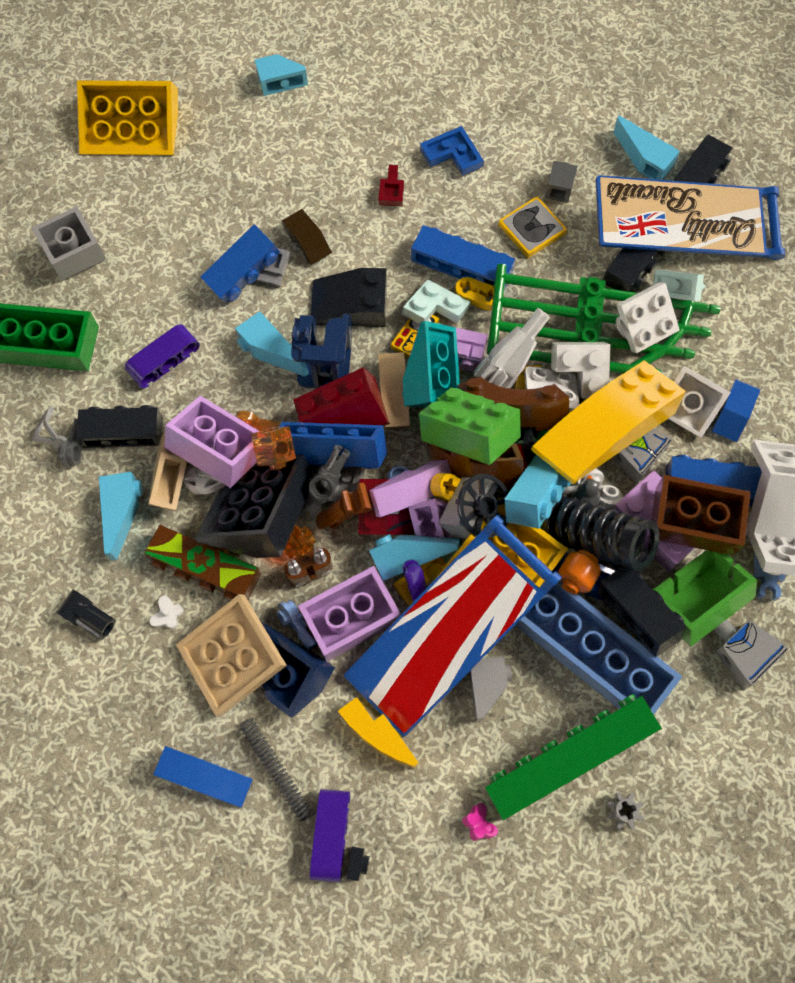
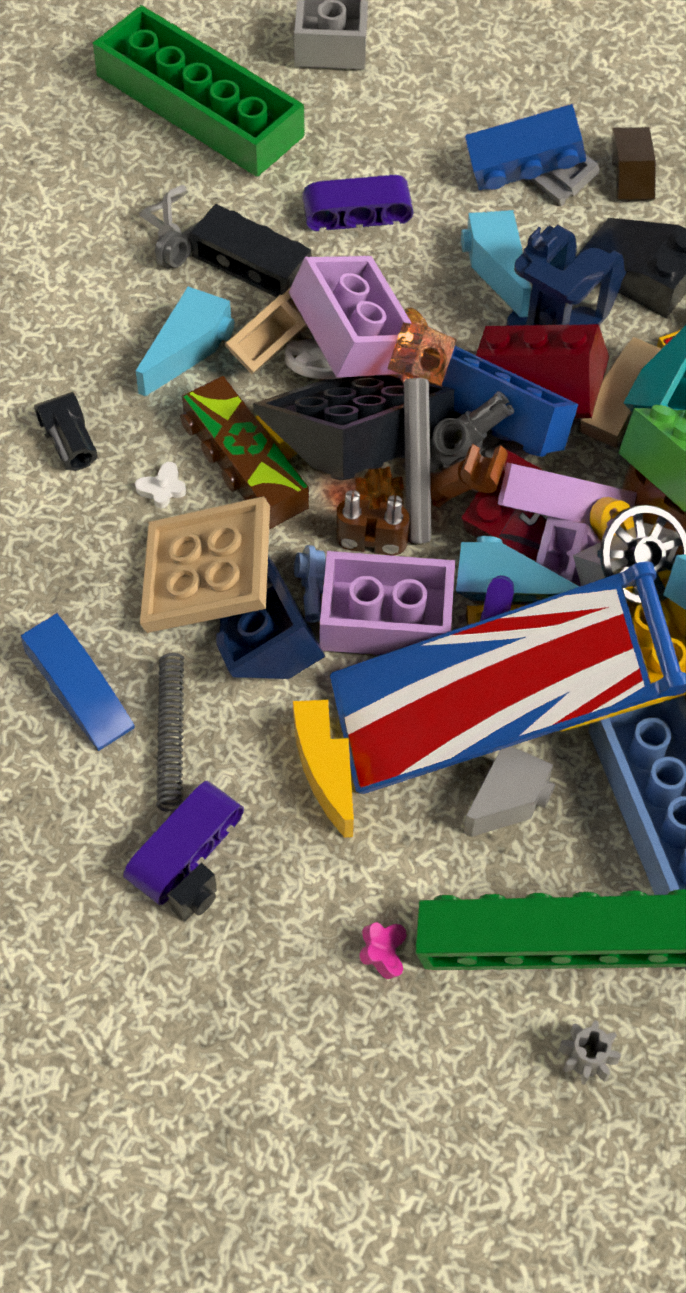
camera: 30 degrees right, 10 degrees down
(311, 512) = (417, 459): none -> light grey axle

